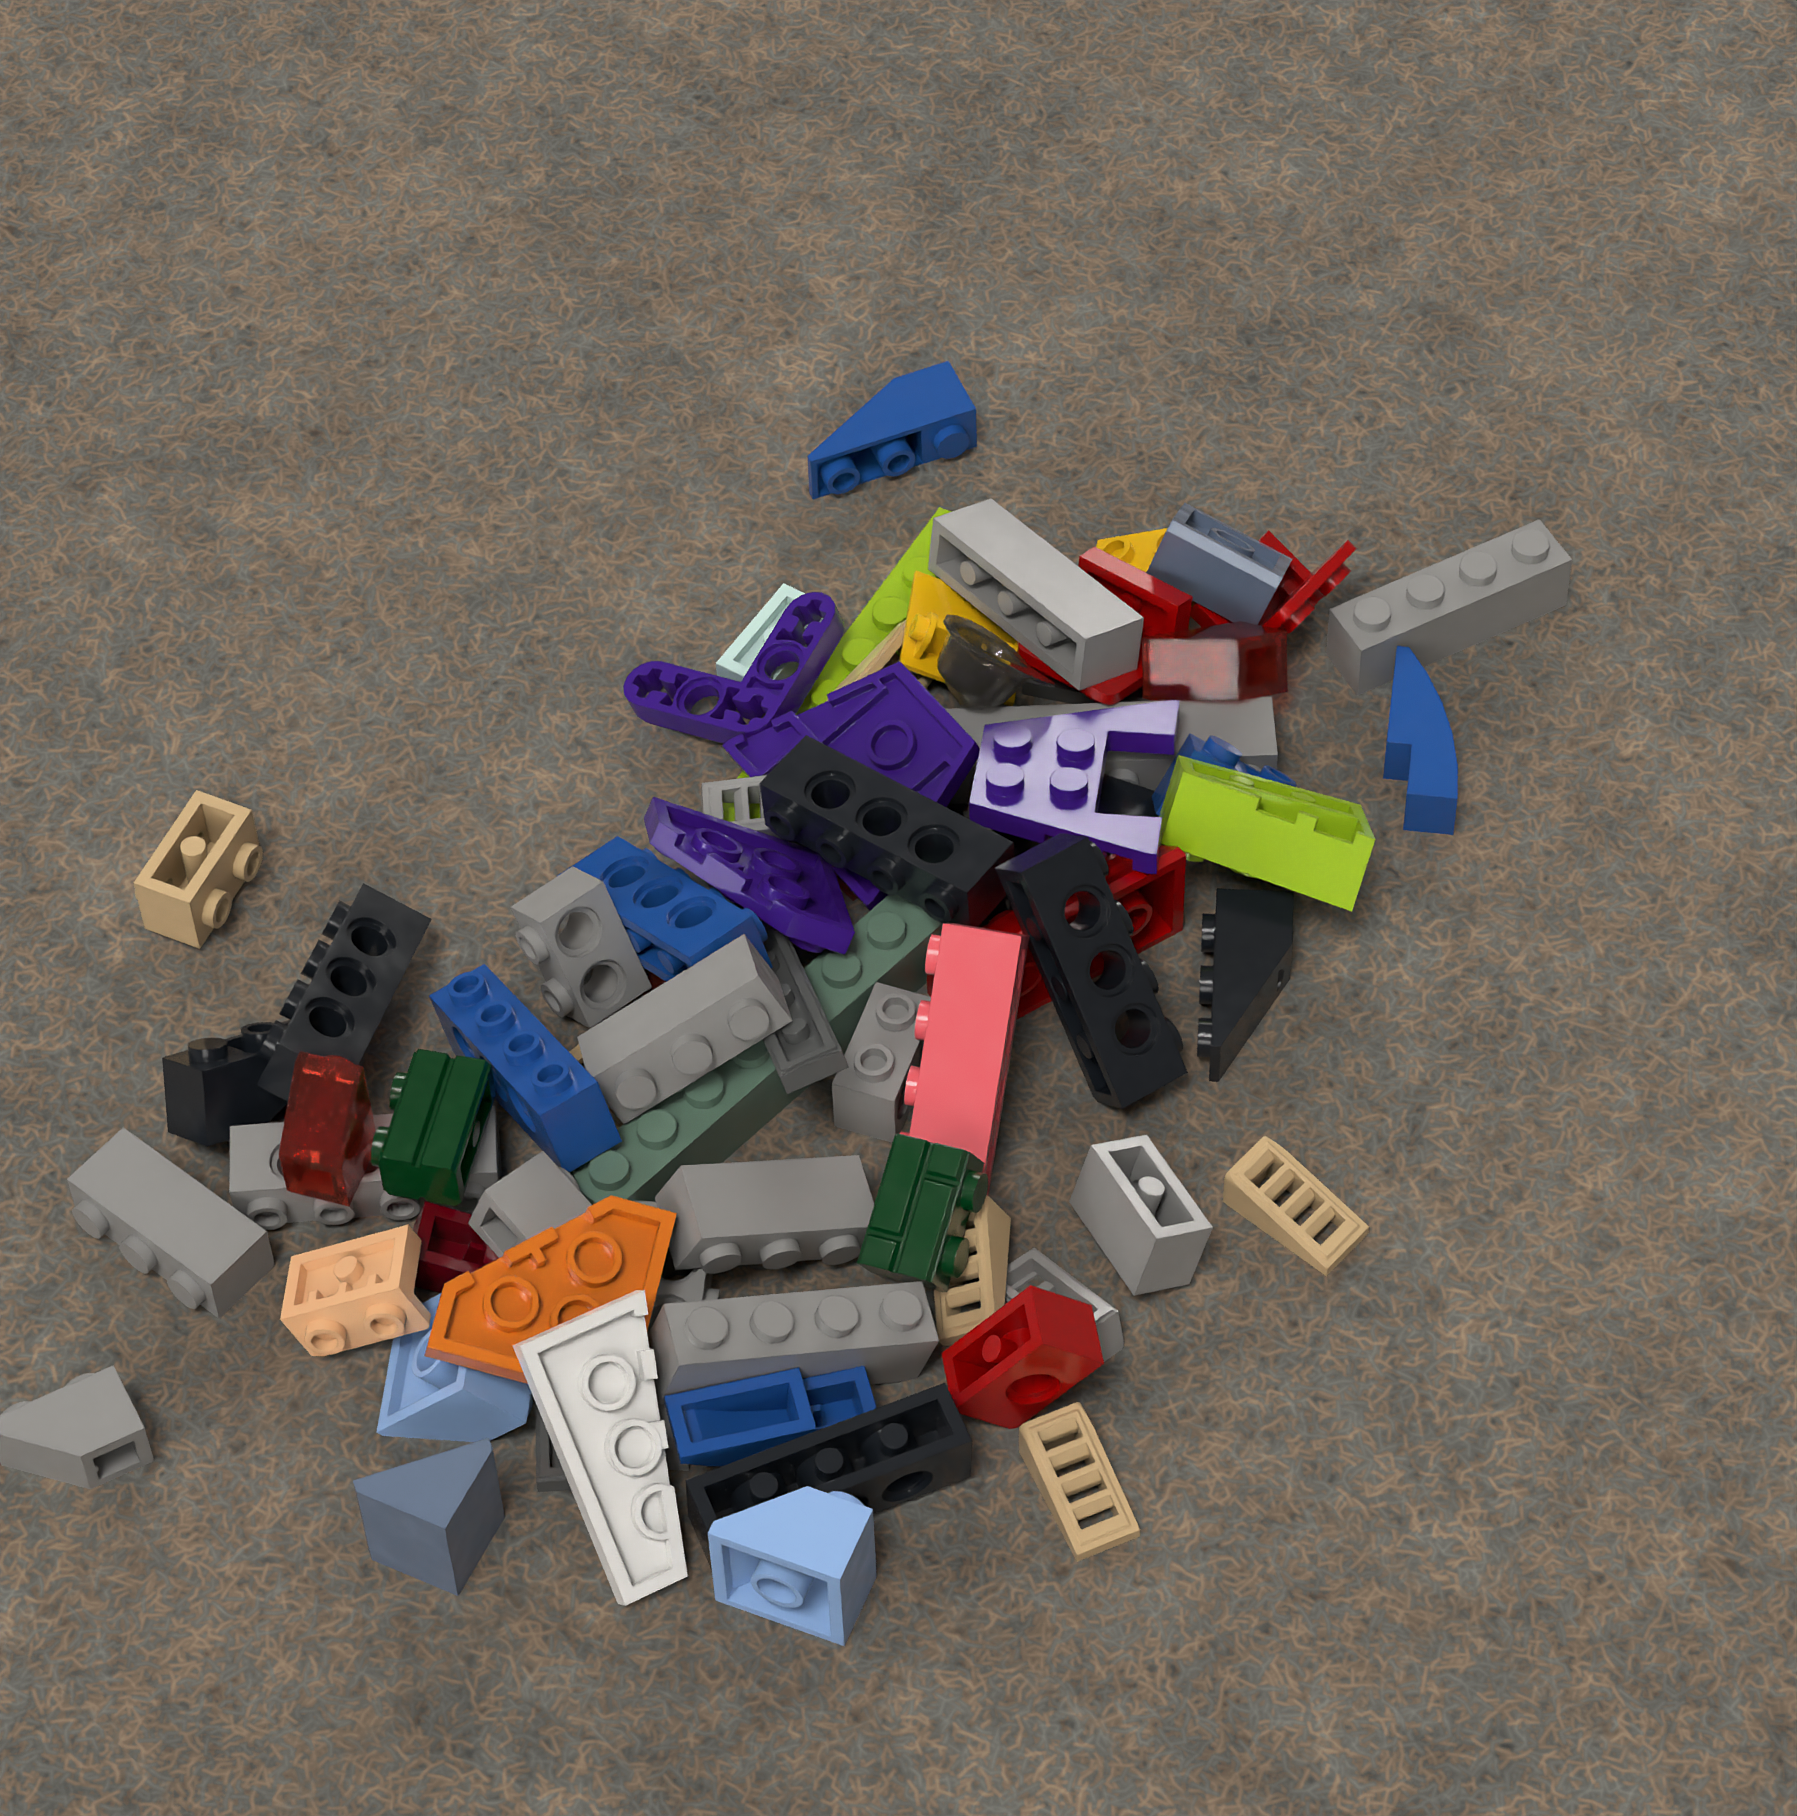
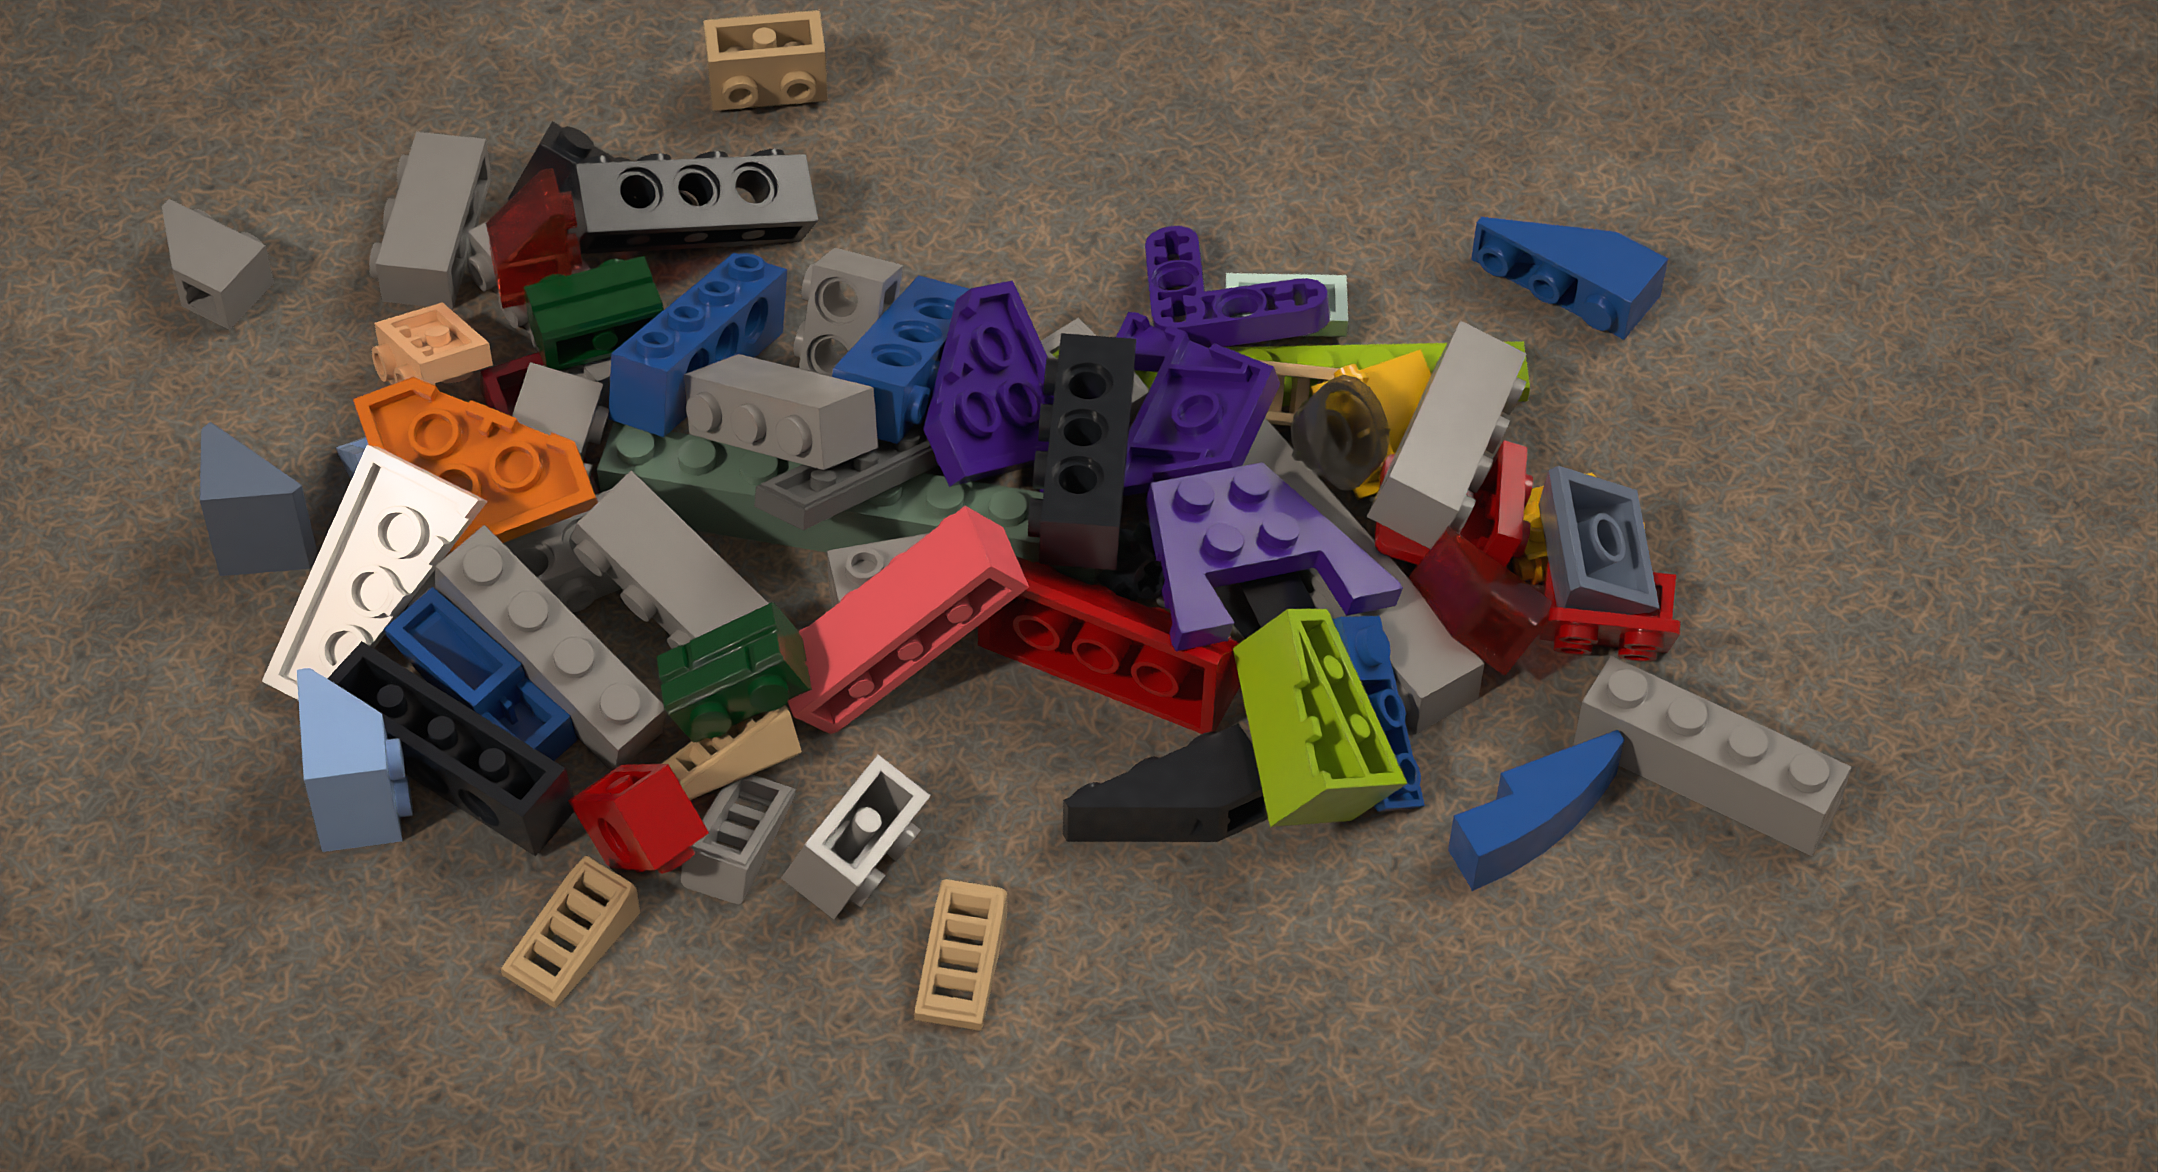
camera: 55 degrees right, 0 degrees up
(1038, 890) = (1003, 747): black brick -> none

